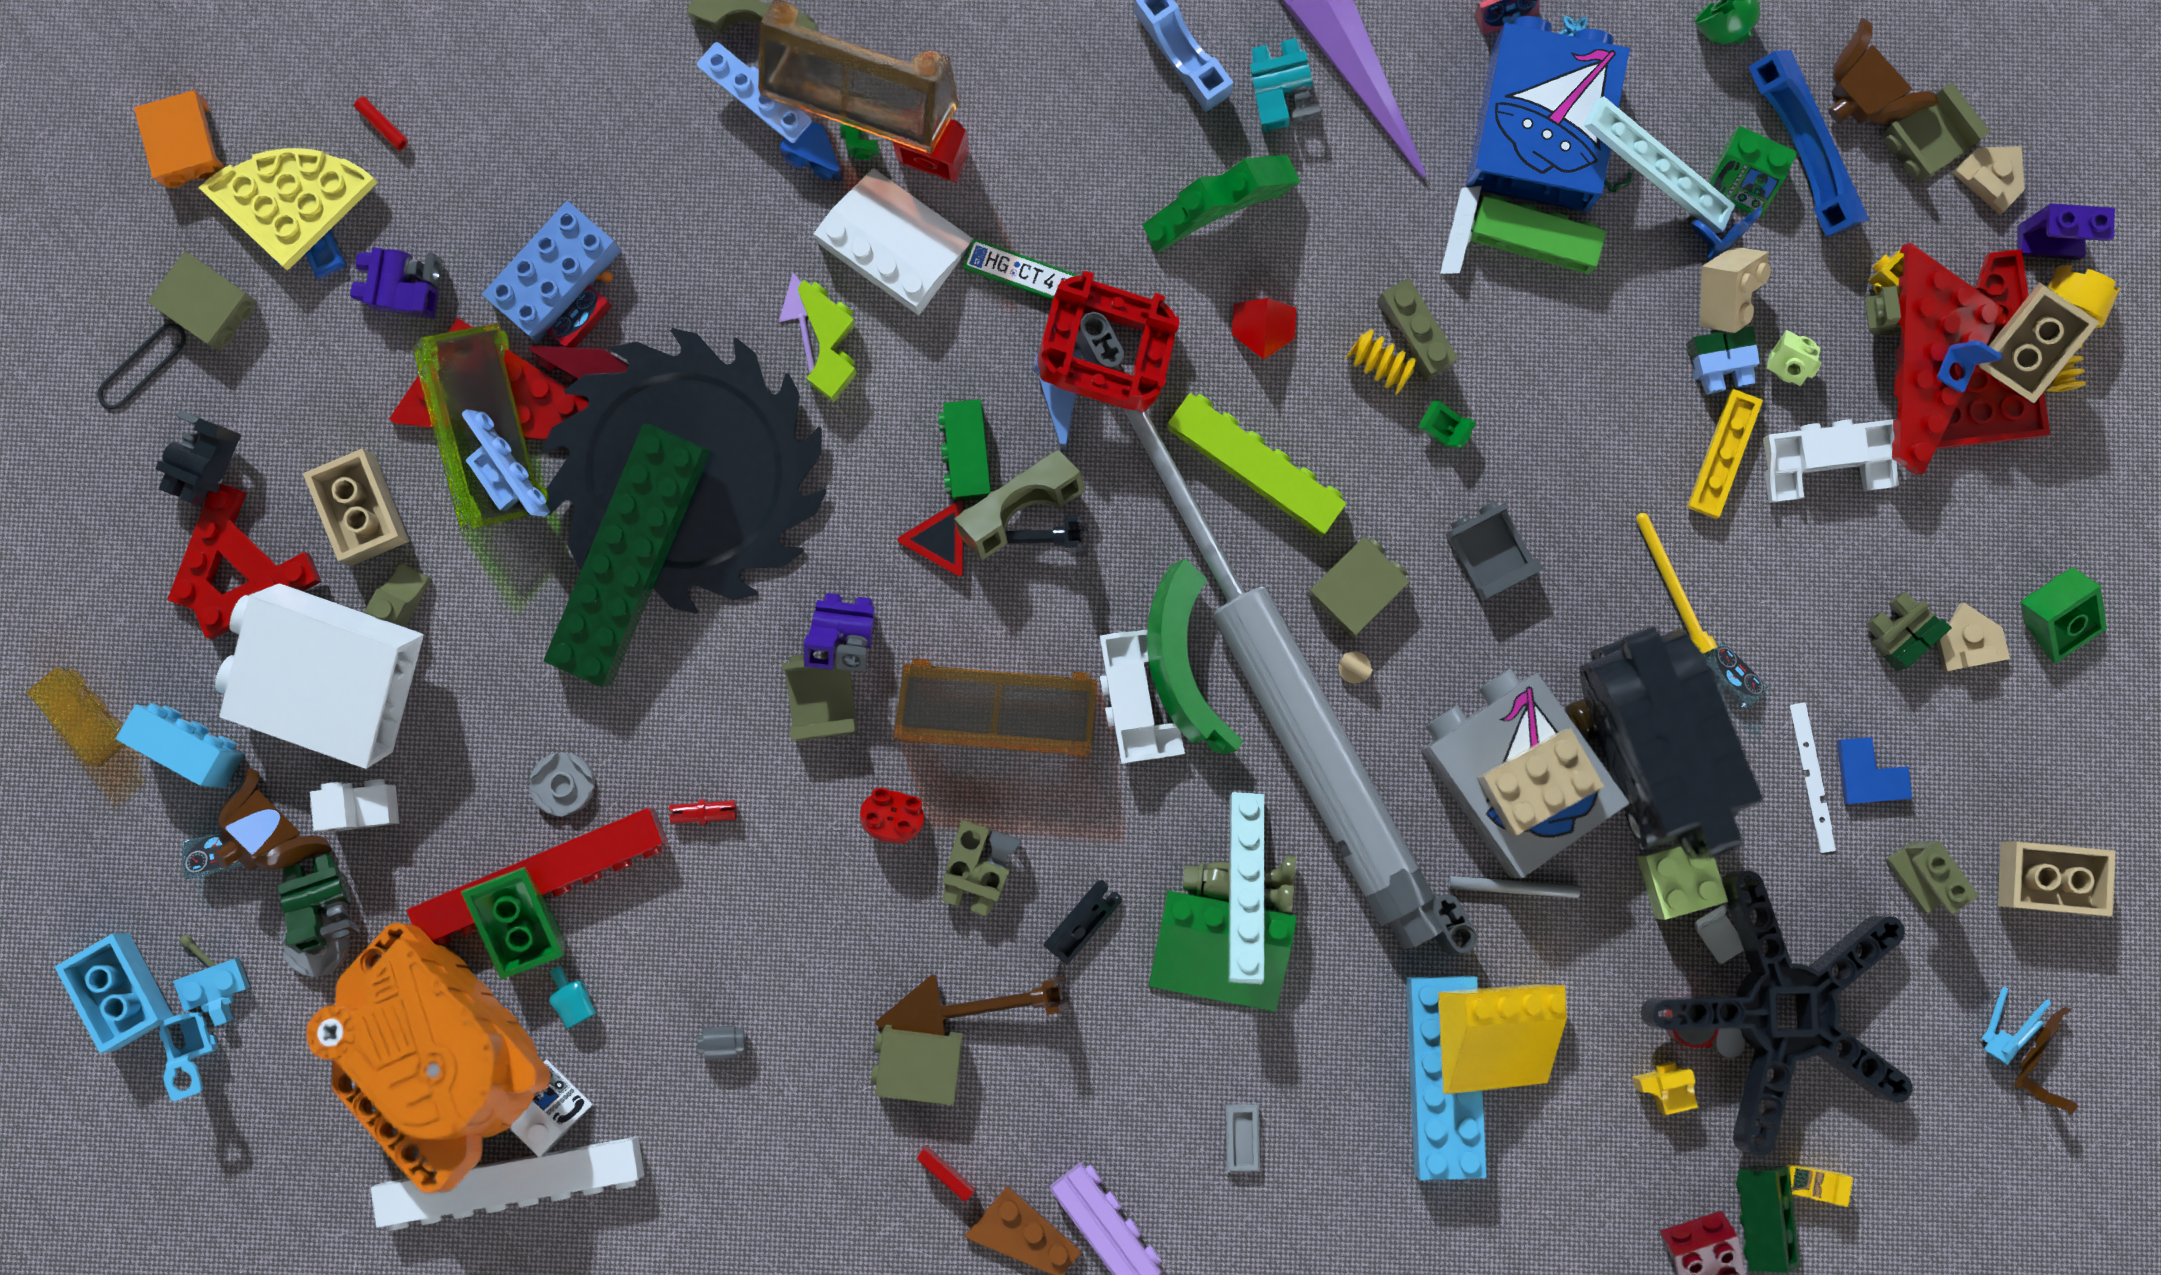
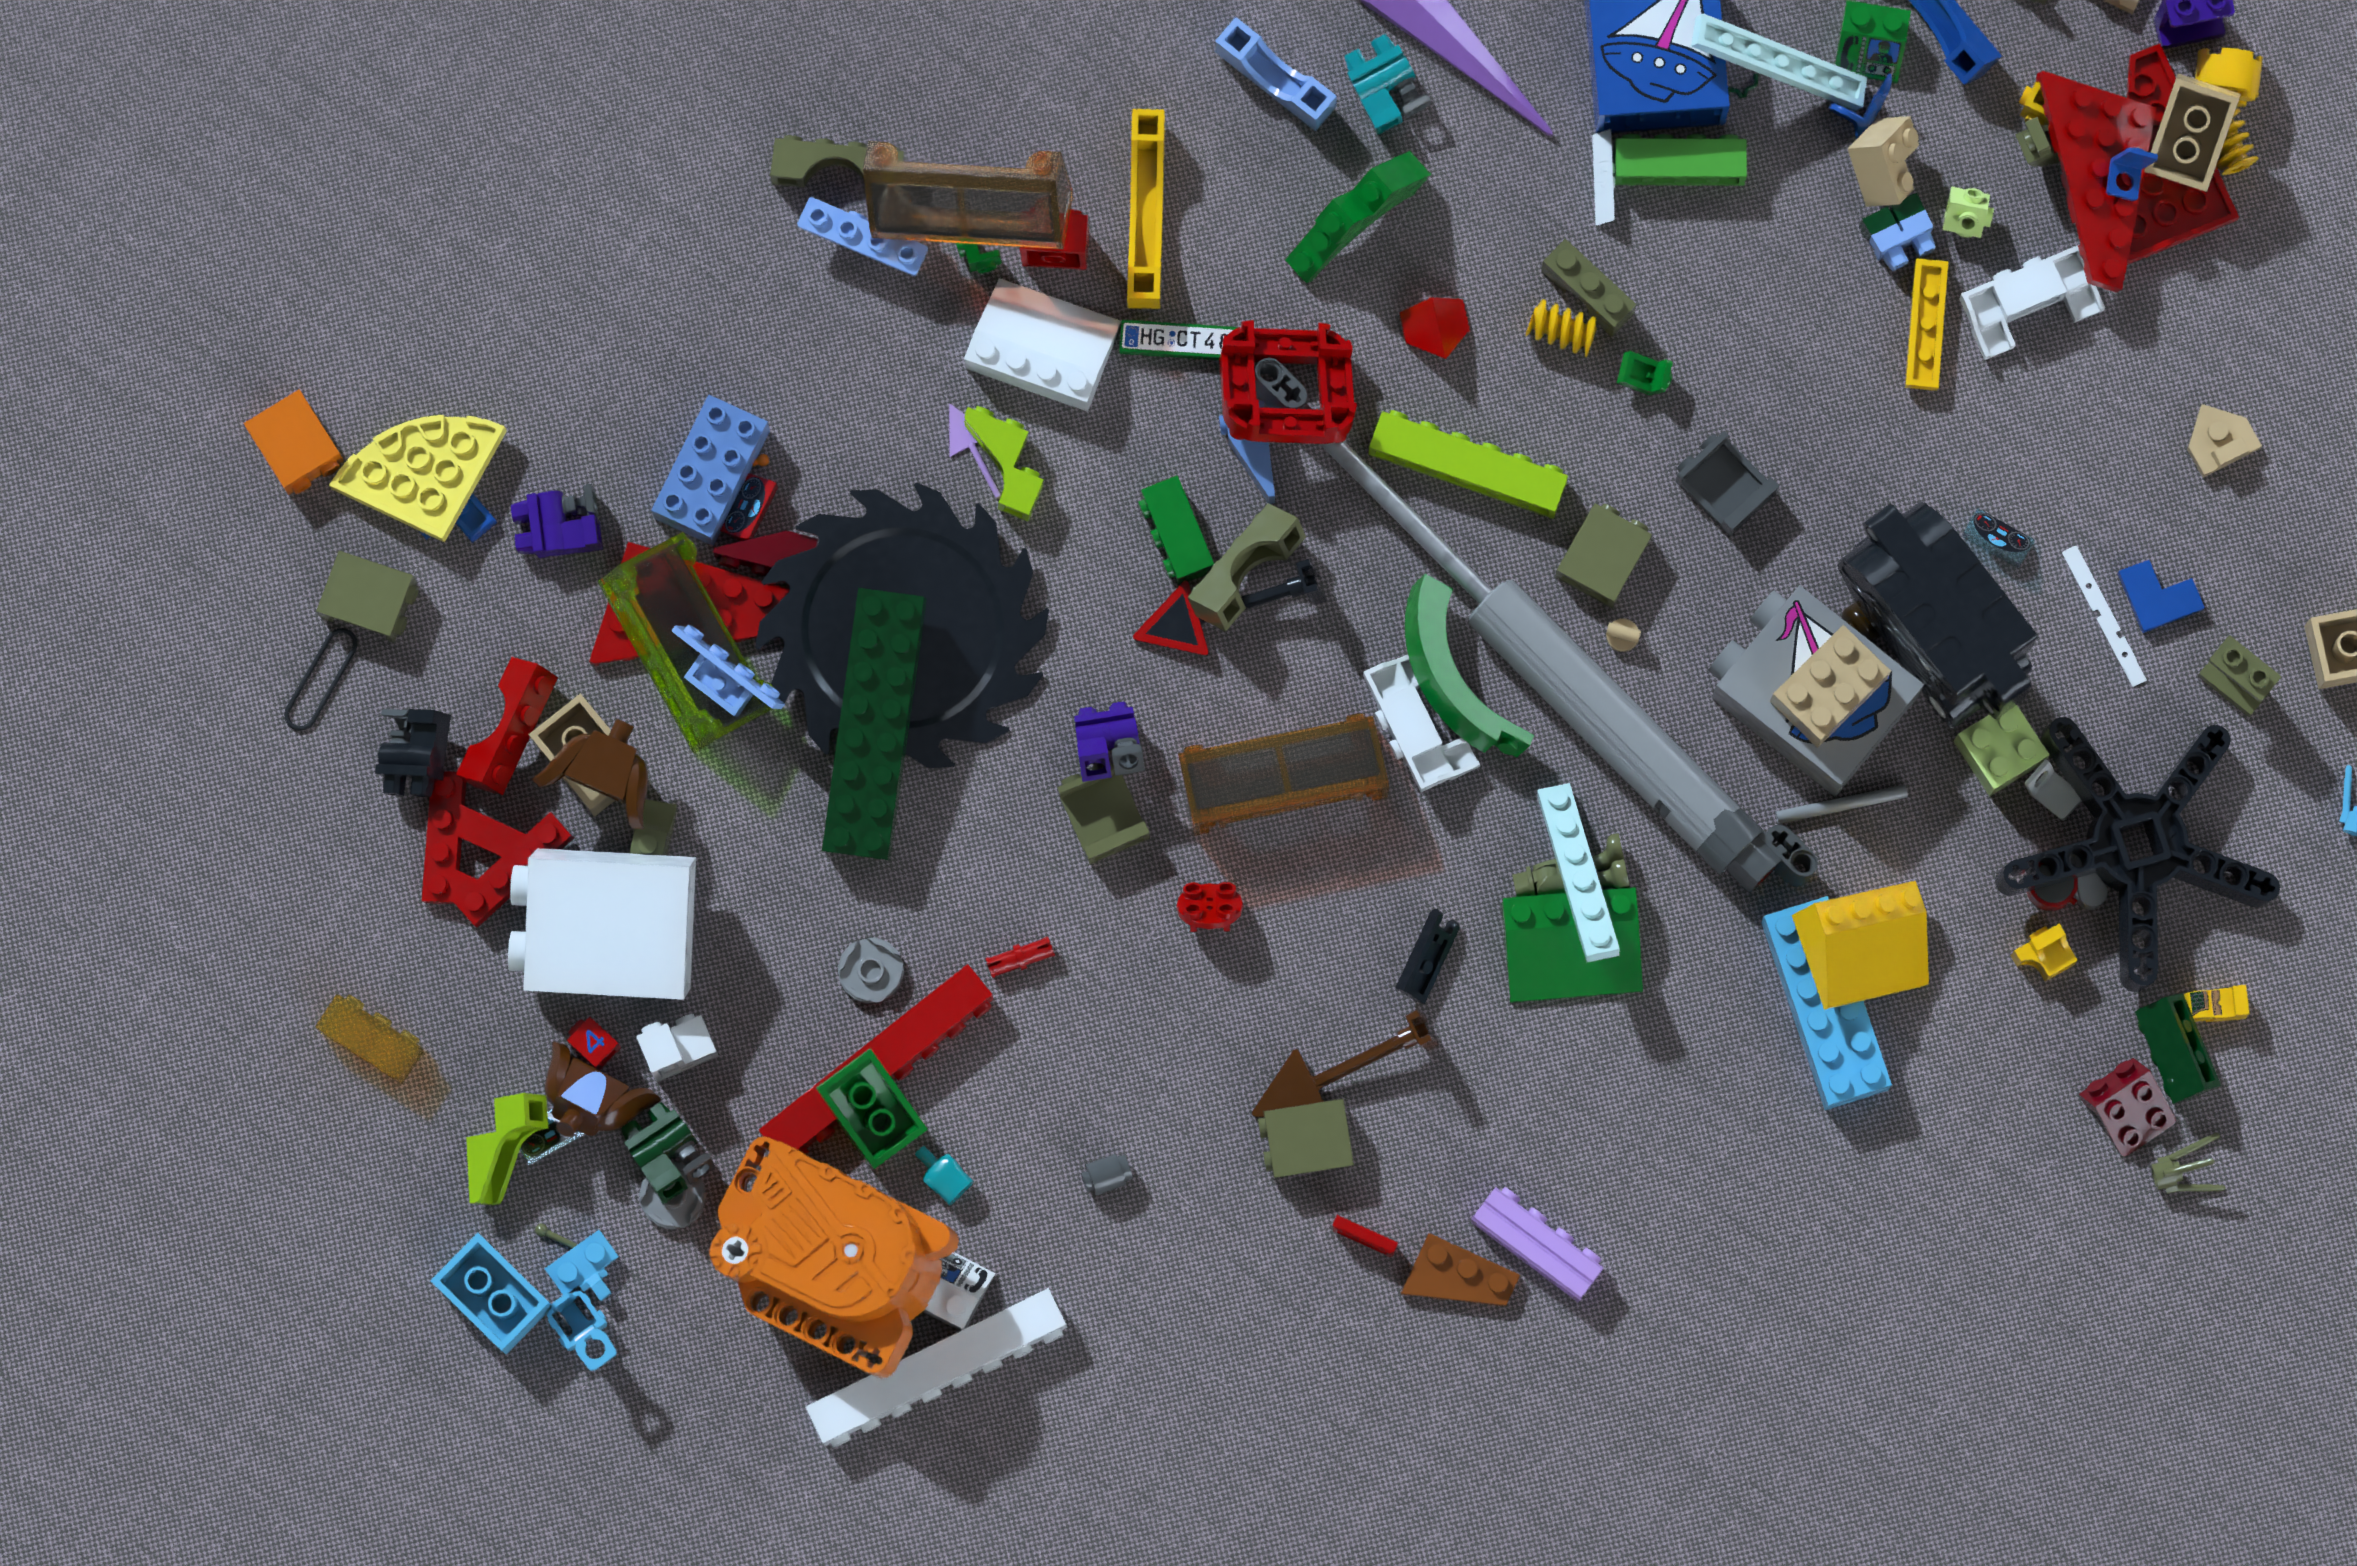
camera: 15 degrees left, 5 degrees down
(157, 861) = (495, 1153): none -> lime arch
(181, 745) = (486, 1034): medium azure brick -> none
(282, 780) = (593, 1042): none -> red brick
(314, 436) = (494, 760): none -> red arch
(359, 526) = (604, 766): none -> reddish brown torso
(380, 123) = (490, 371): red piece -> none
(813, 151) = (938, 279): blue slope -> none
(973, 874) = (1308, 941): olive hips -> none
(1031, 127) = (1146, 209): none -> yellow arch
(1242, 1138) = (1645, 1122): light grey tile -> none
(1697, 635) = (1953, 512): yellow piece -> none
(1909, 634) = (2156, 450): olive hips -> none
(2065, 613) = (2302, 387): green slope -> none

